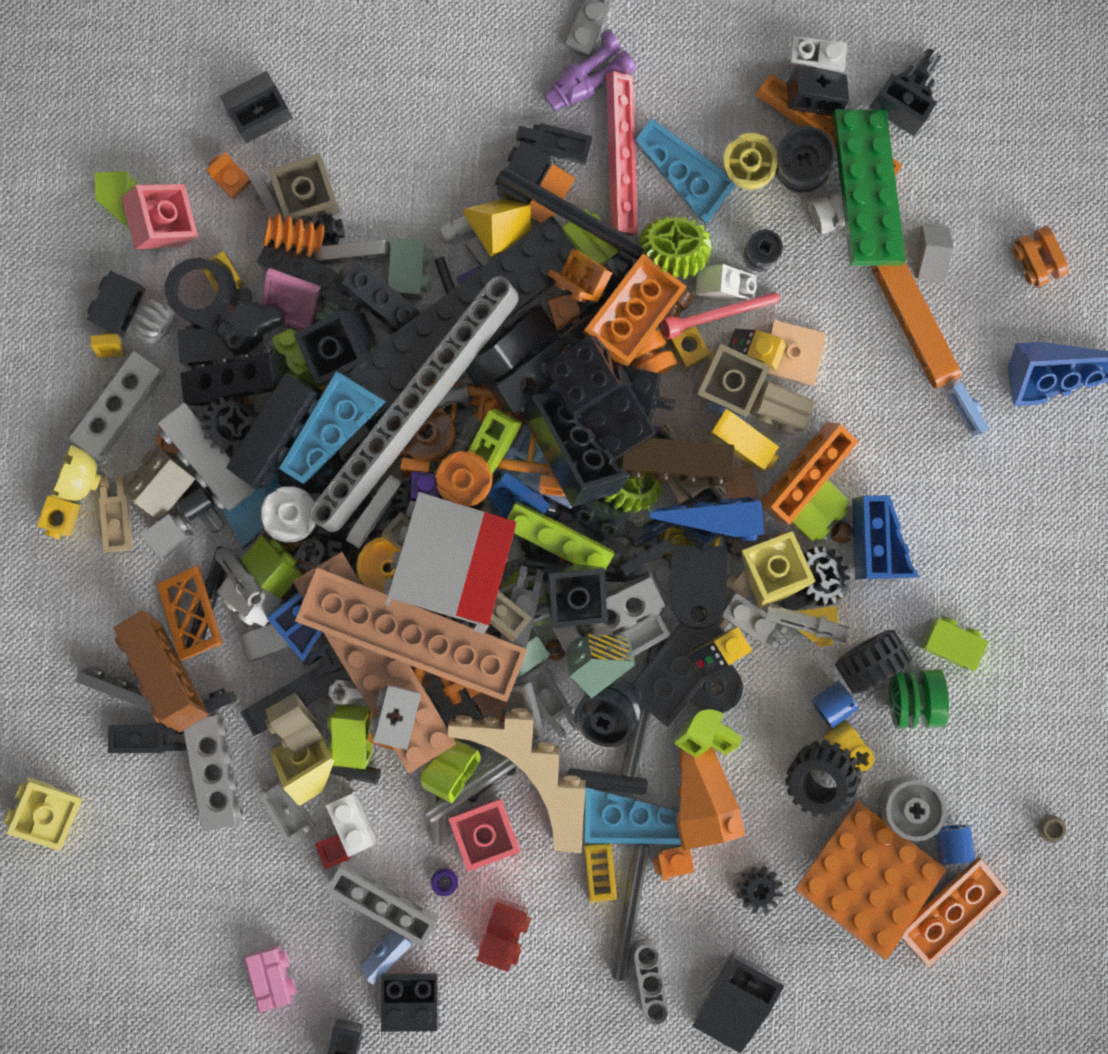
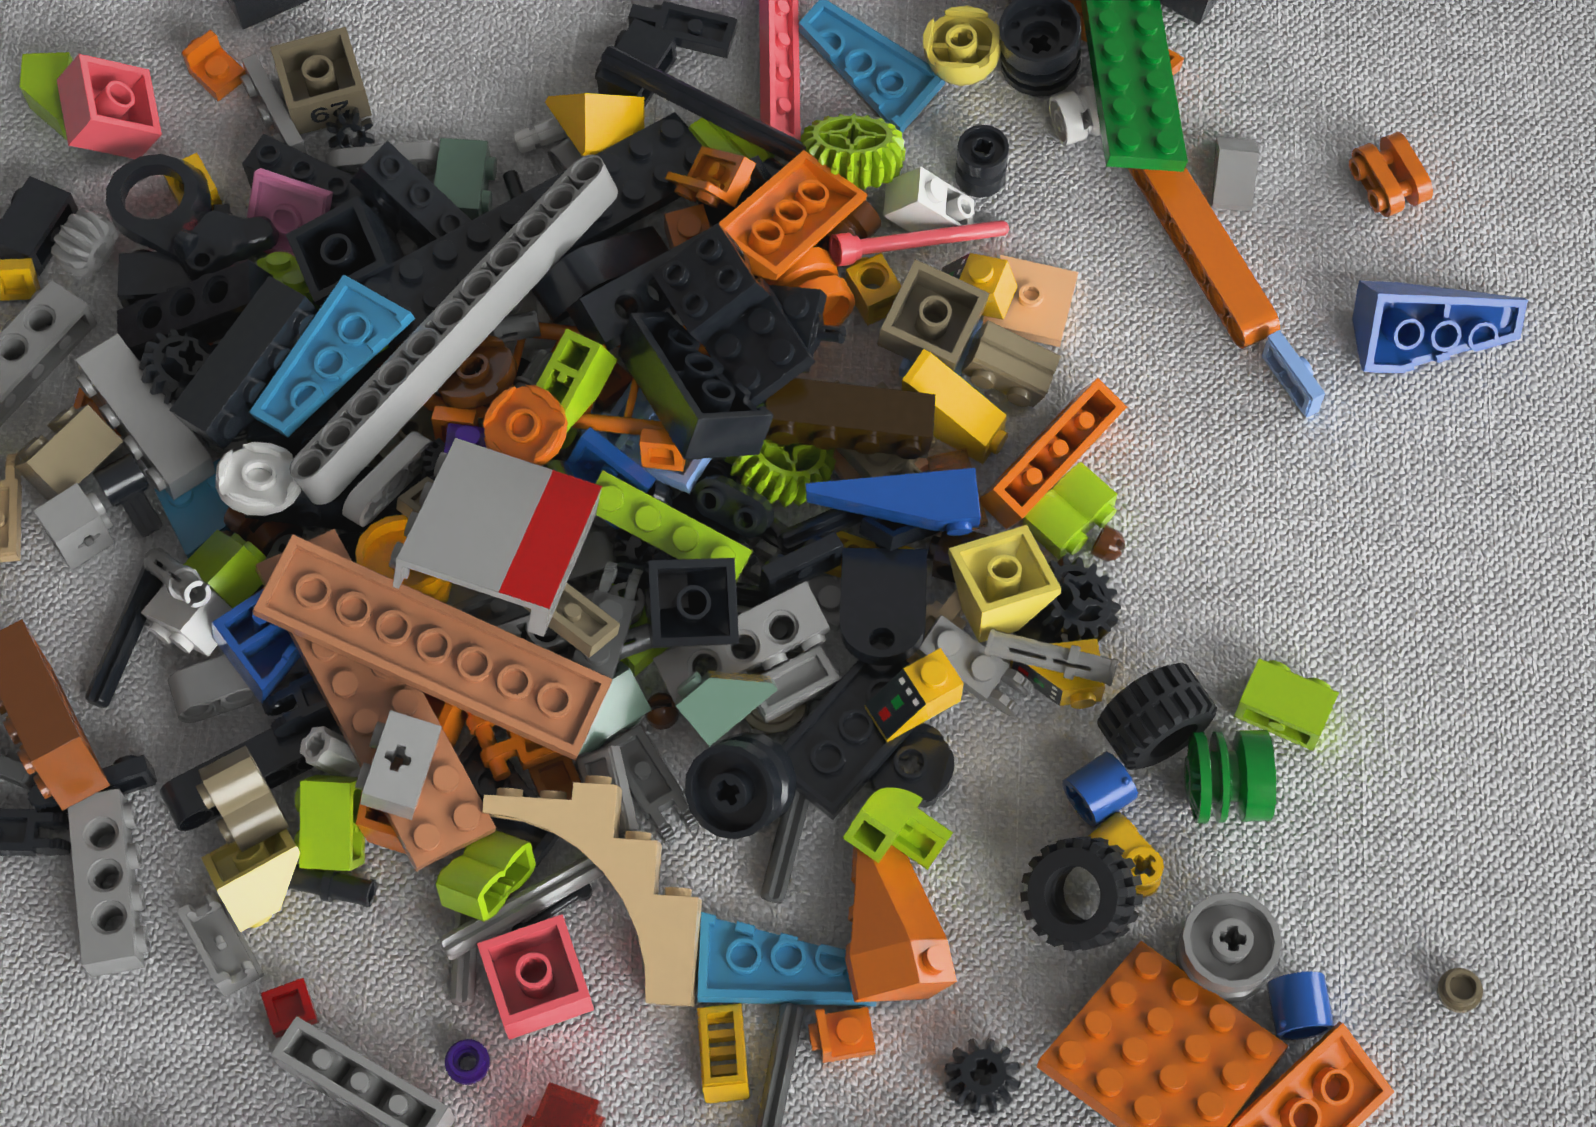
camera: 10 degrees right, 20 degrees down
(170, 608) = (106, 686): orange window -> none
(293, 234) = (297, 124): orange piece -> none
(351, 823) = (322, 962): white brick -> none
(558, 183) = (684, 69): orange slope -> none
(611, 781) = (749, 908): black axle -> none
(878, 540) = (1162, 552): blue wedge -> none

